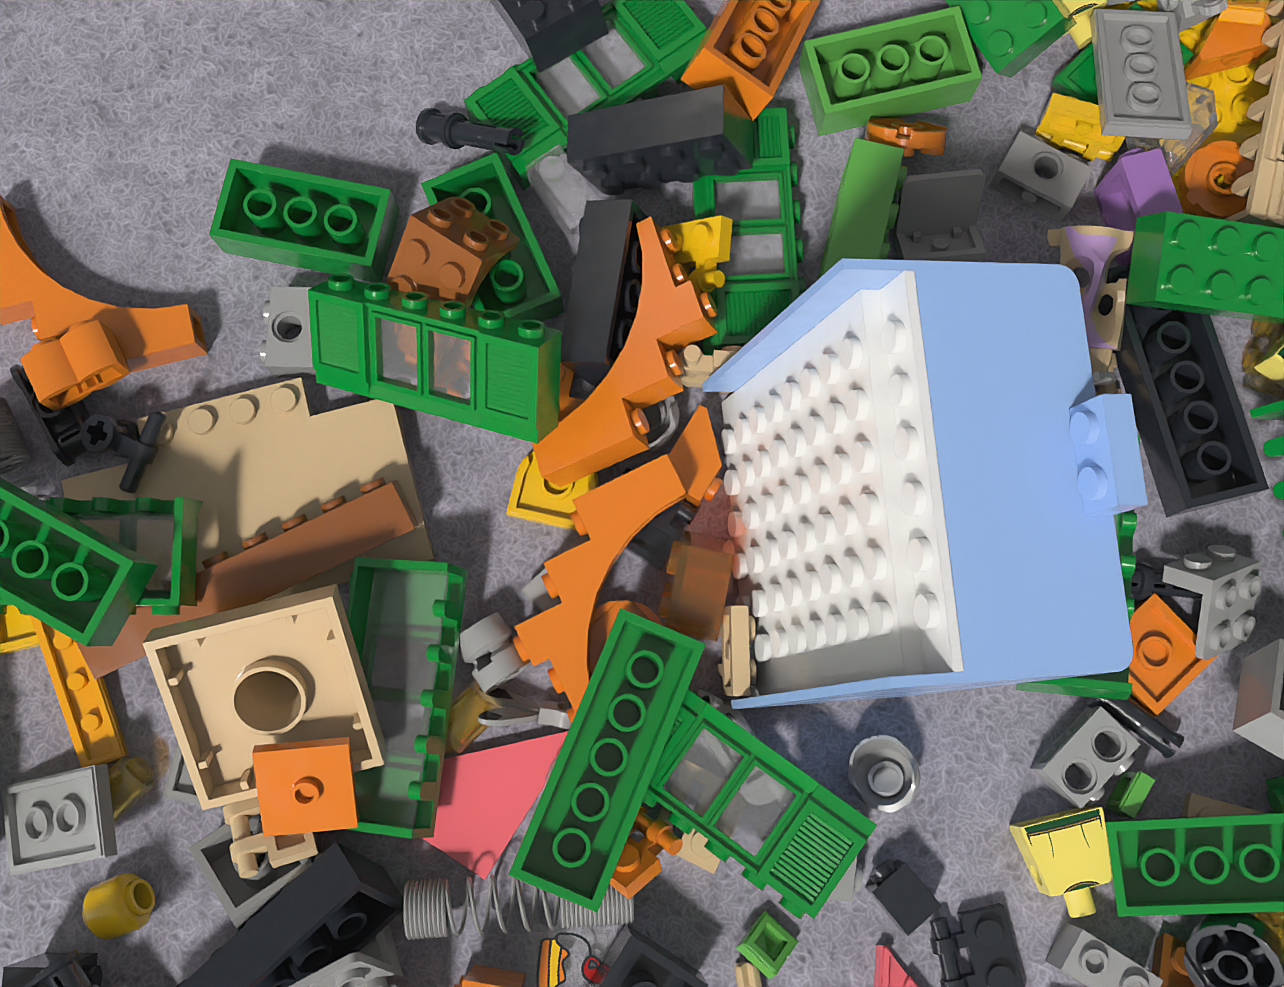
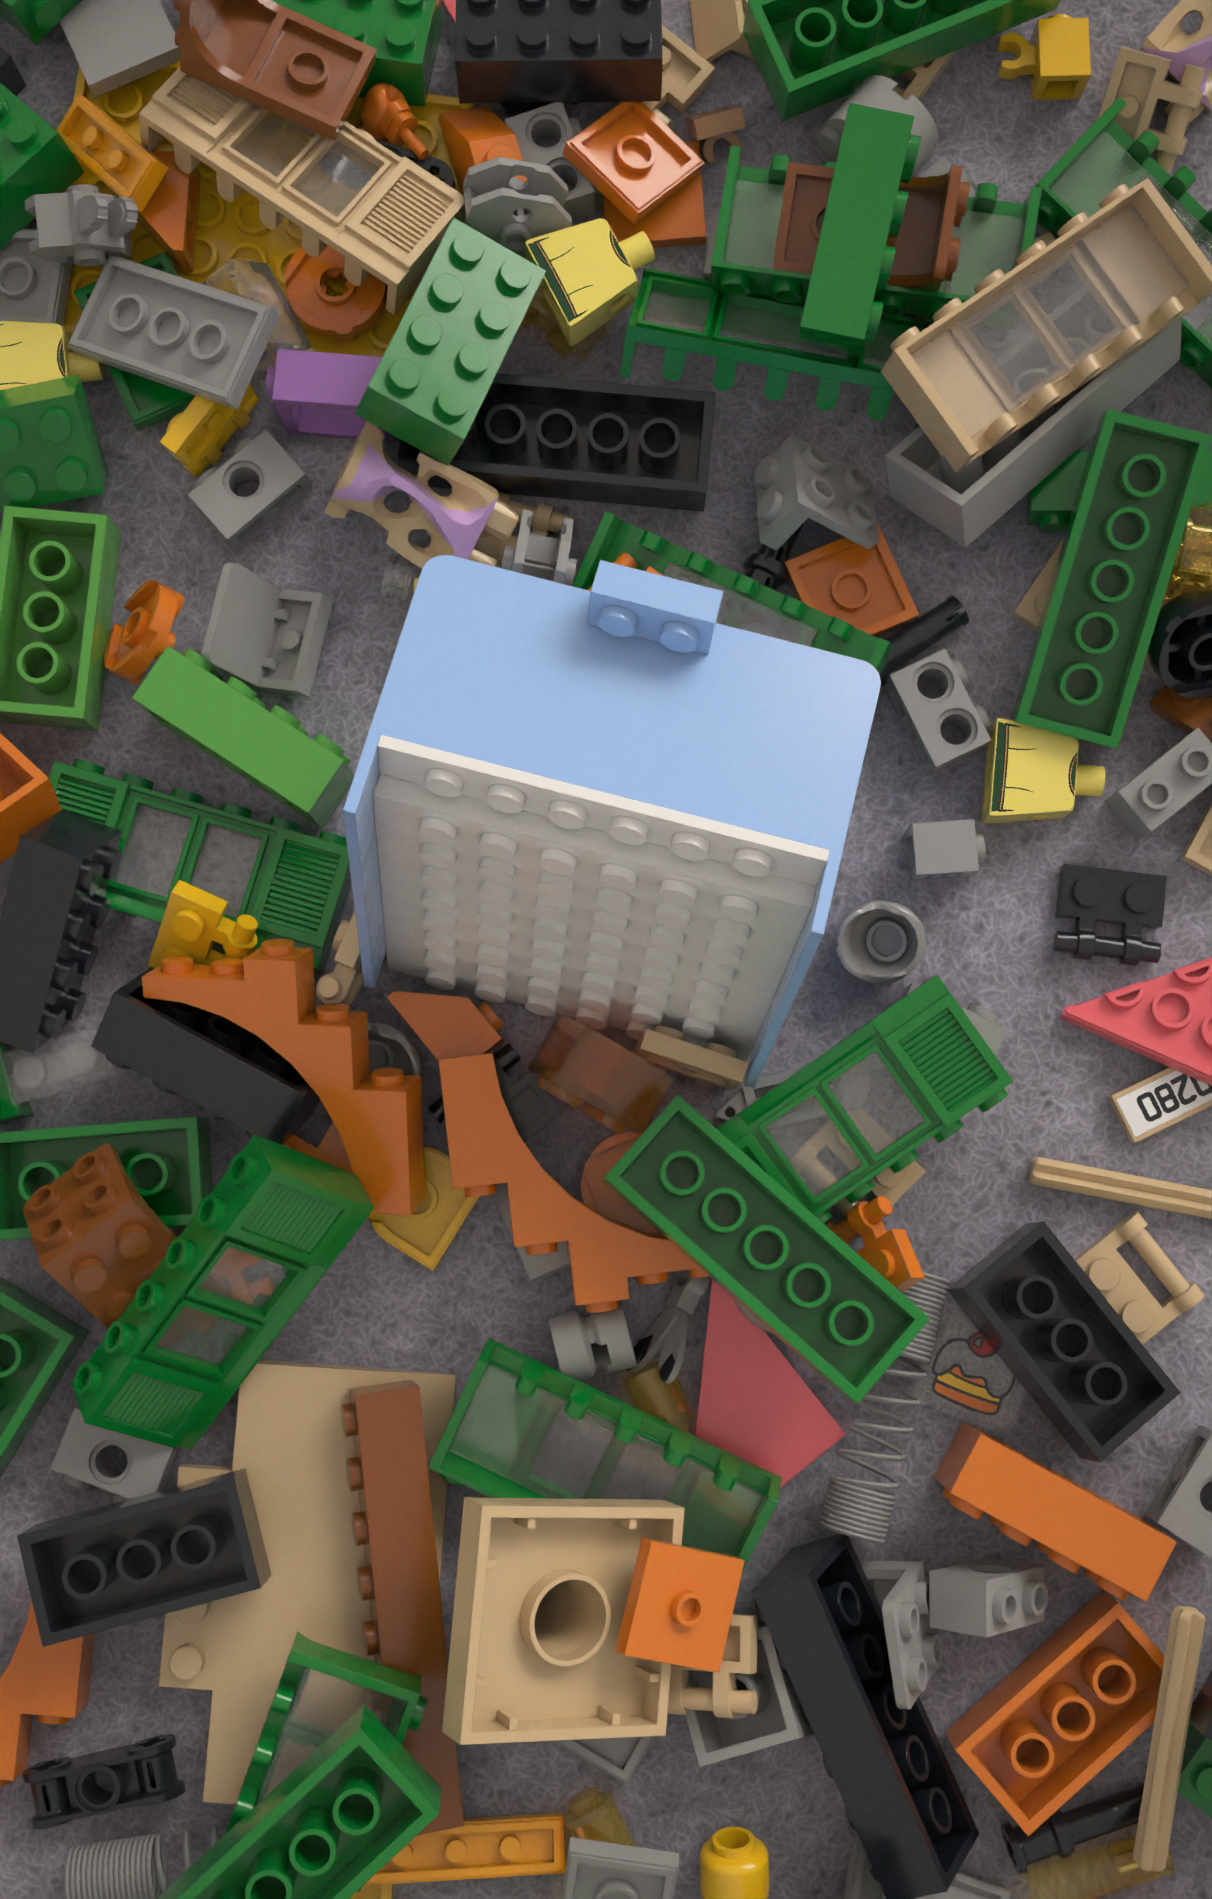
camera: 70 degrees left, 5 degrees up
(75, 364) = (66, 1742): orange brick -> none
(122, 439) = (177, 1710): black piece -> none
(224, 371) = (144, 1557): none -> black brick
(767, 945) = (1021, 1139): bright green tile -> none
(902, 895) = (1017, 971): black brick -> none
(976, 800) = (944, 850): none -> light grey brick
(1130, 794) = (993, 679): bright green tile -> none

